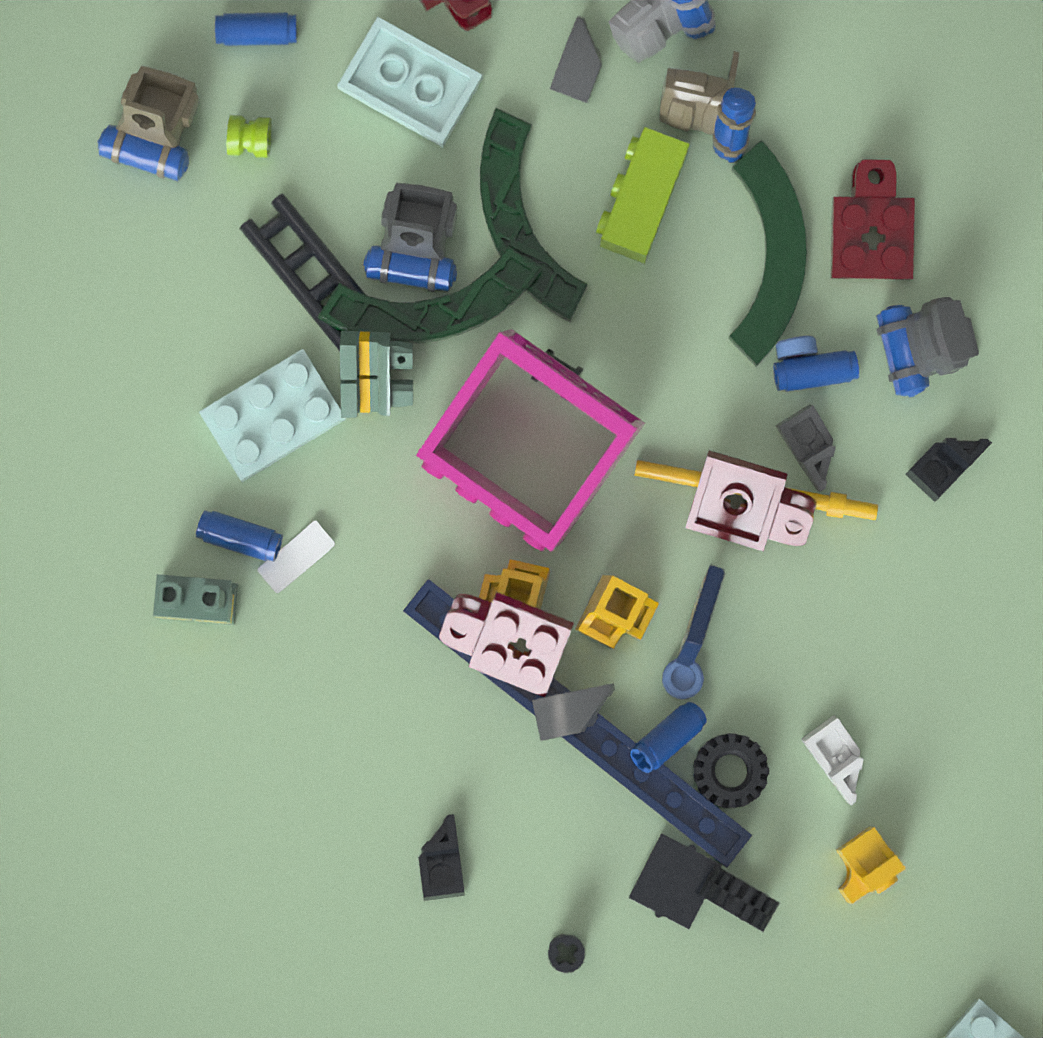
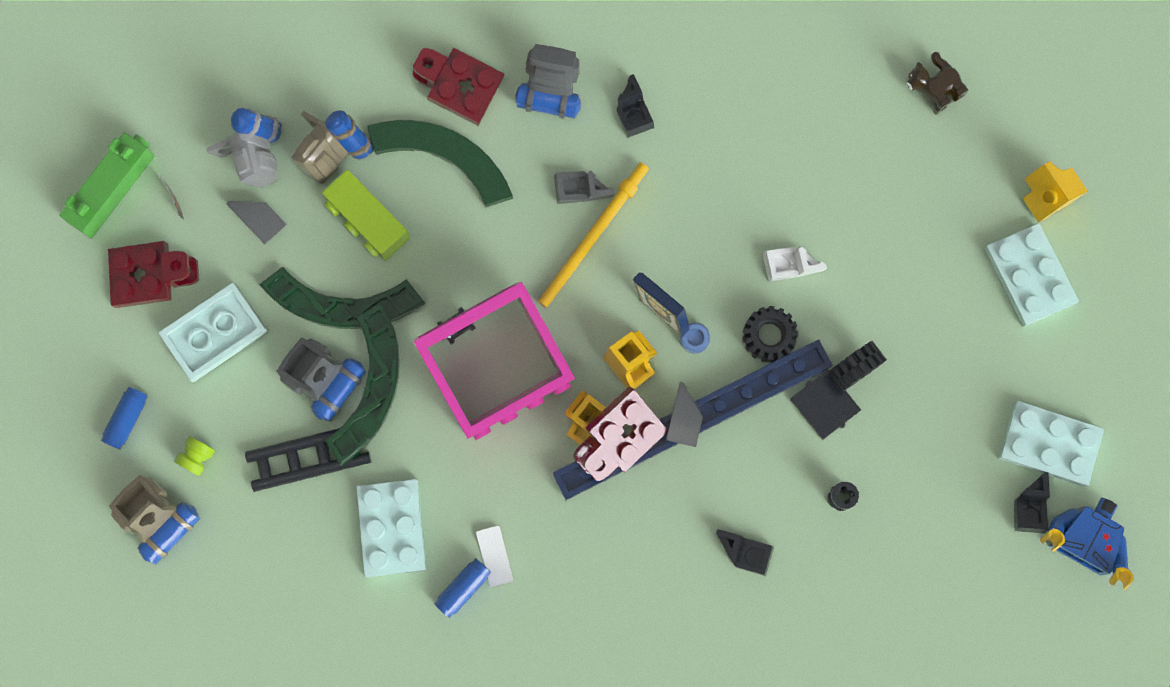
camera: 65 degrees left, 5 degrees down
(195, 599) = (491, 637): sand green hips -> none
(366, 373) = (395, 449): sand green hips -> none
(668, 737) = (730, 363): blue piece -> none
(770, 510) = (612, 230): plate -> none
(796, 347) = (513, 165): medium blue tile -> none
(816, 370) = (534, 161): blue piece -> none
(868, 865) = (871, 275): yellow brick -> none

